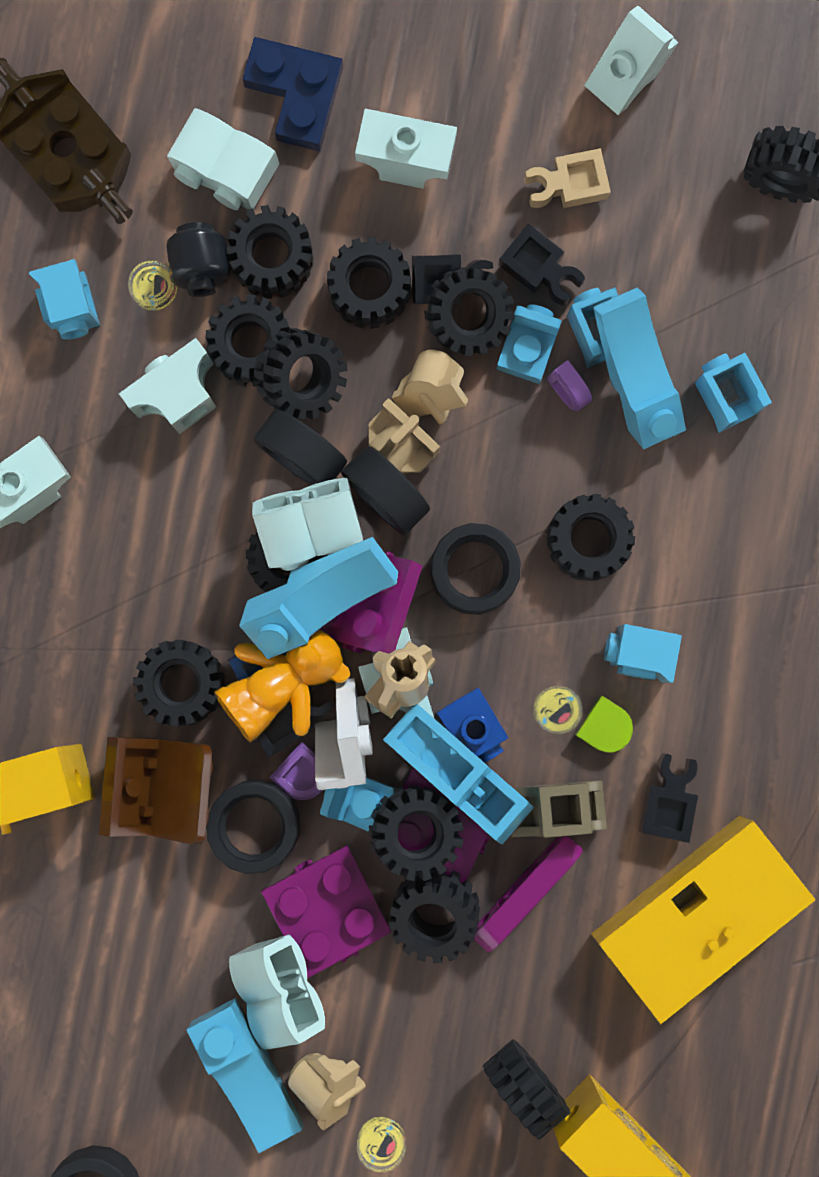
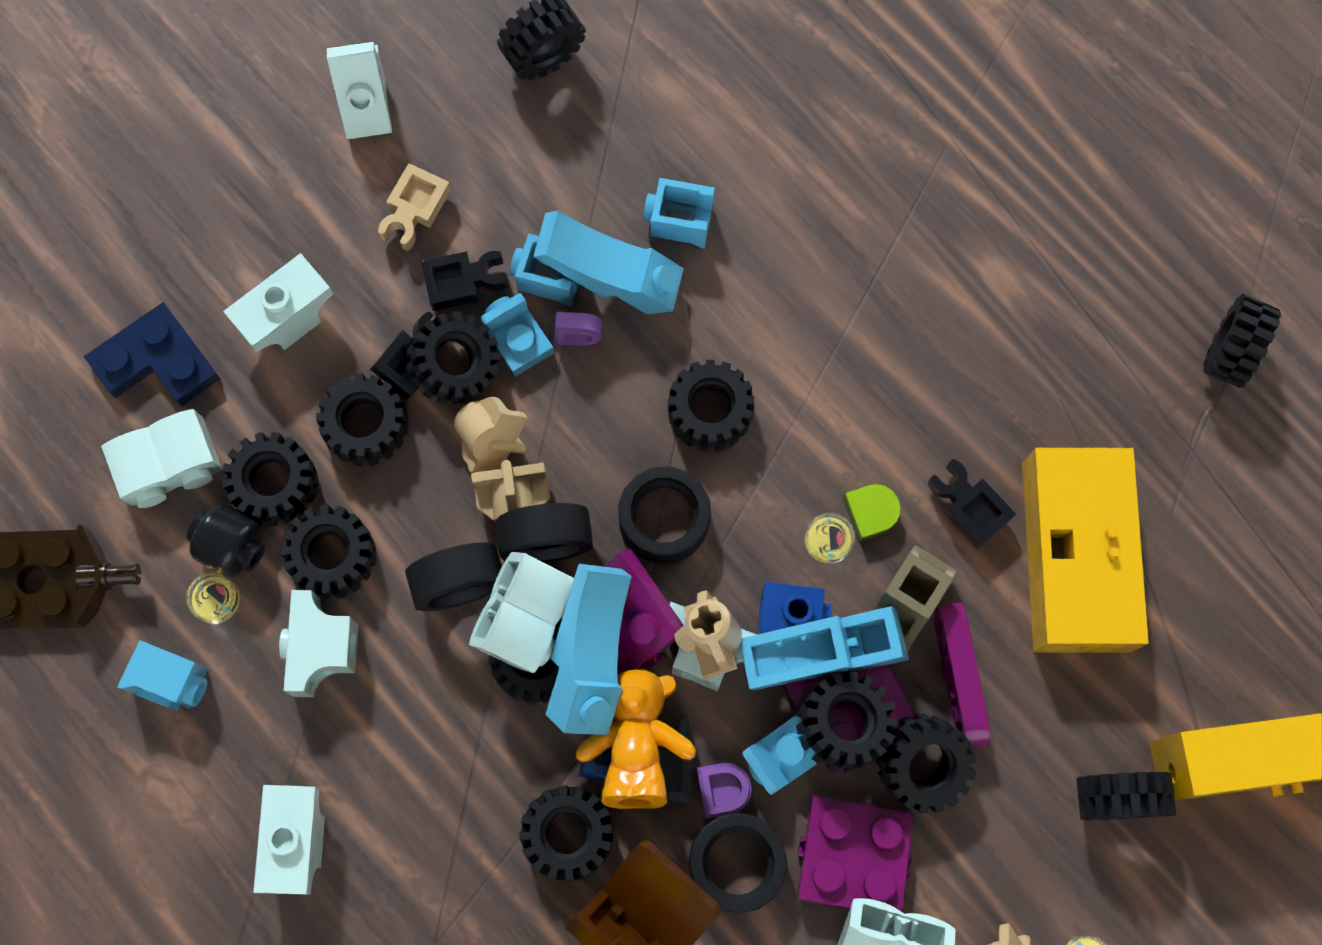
camera: 55 degrees left, 10 degrees down
(324, 376) = (372, 536): black tyre -> none
(344, 741) = (728, 725): white bracket -> none
(643, 652) = (836, 434): medium azure window -> none

